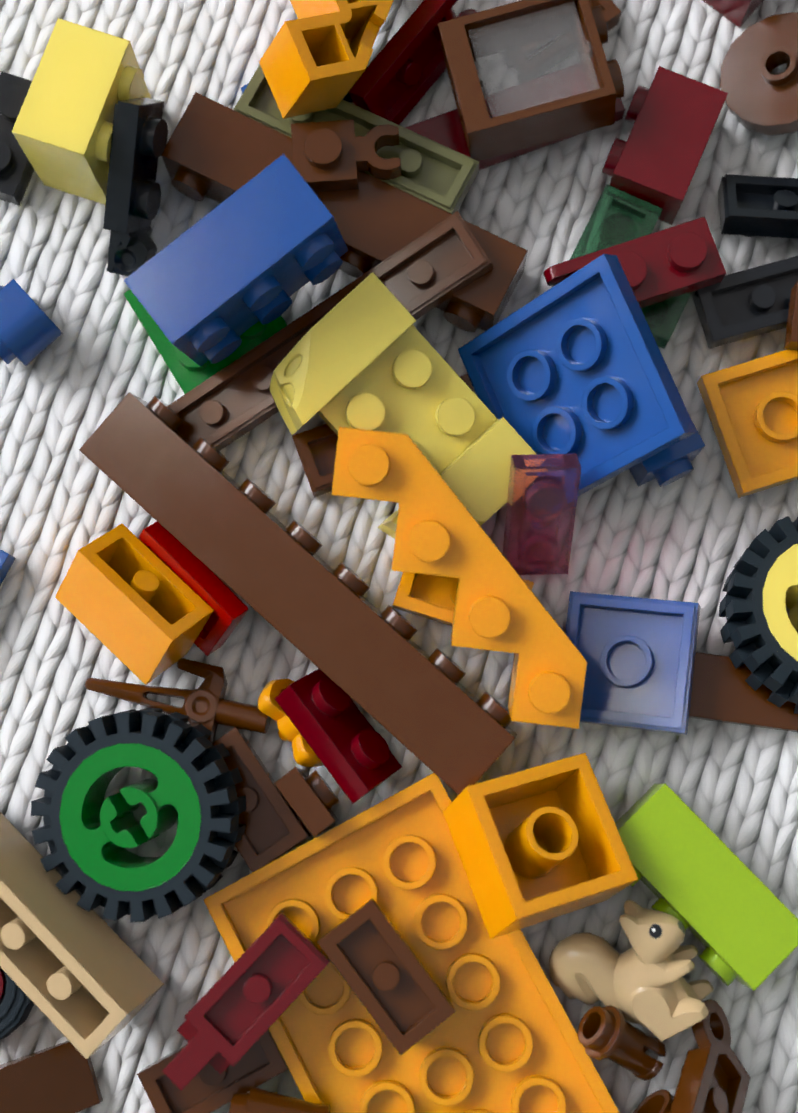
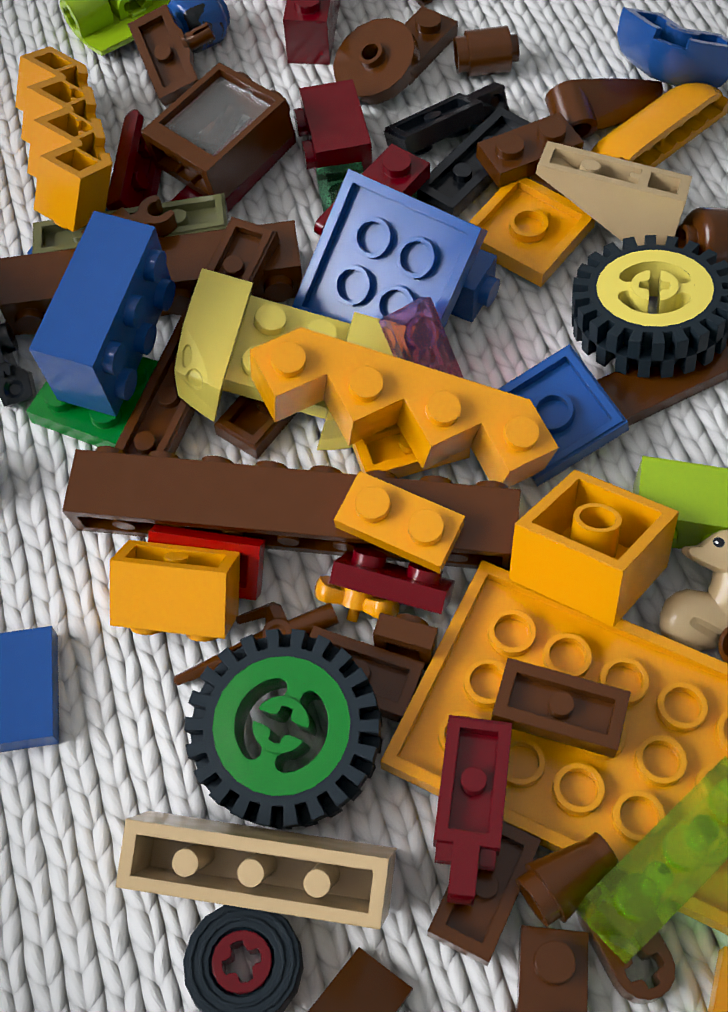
camera: 35 degrees left, 20 degrees down
(374, 692) = (399, 522): none -> light orange plate

